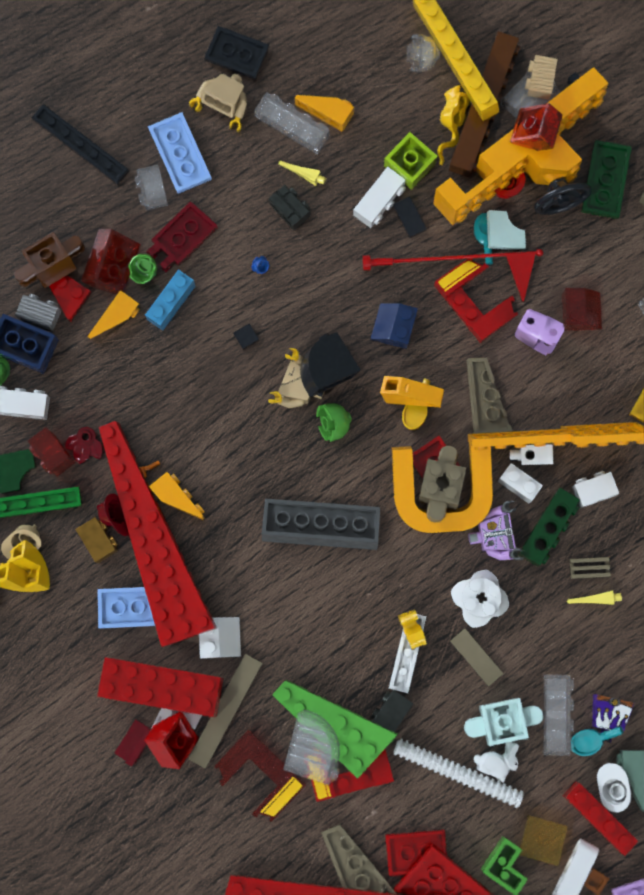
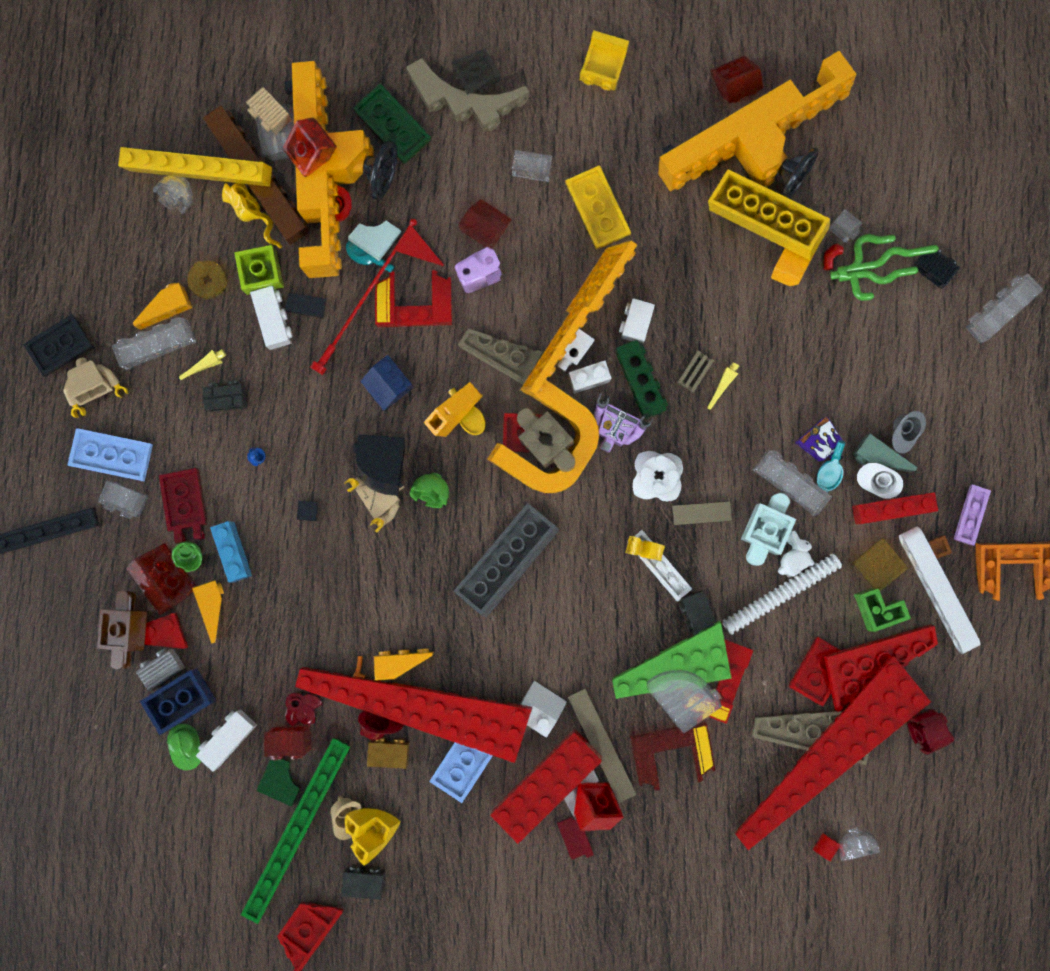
camera: 55 degrees left, 5 degrees up
(375, 117) = (213, 288): none -> clear yellow plate

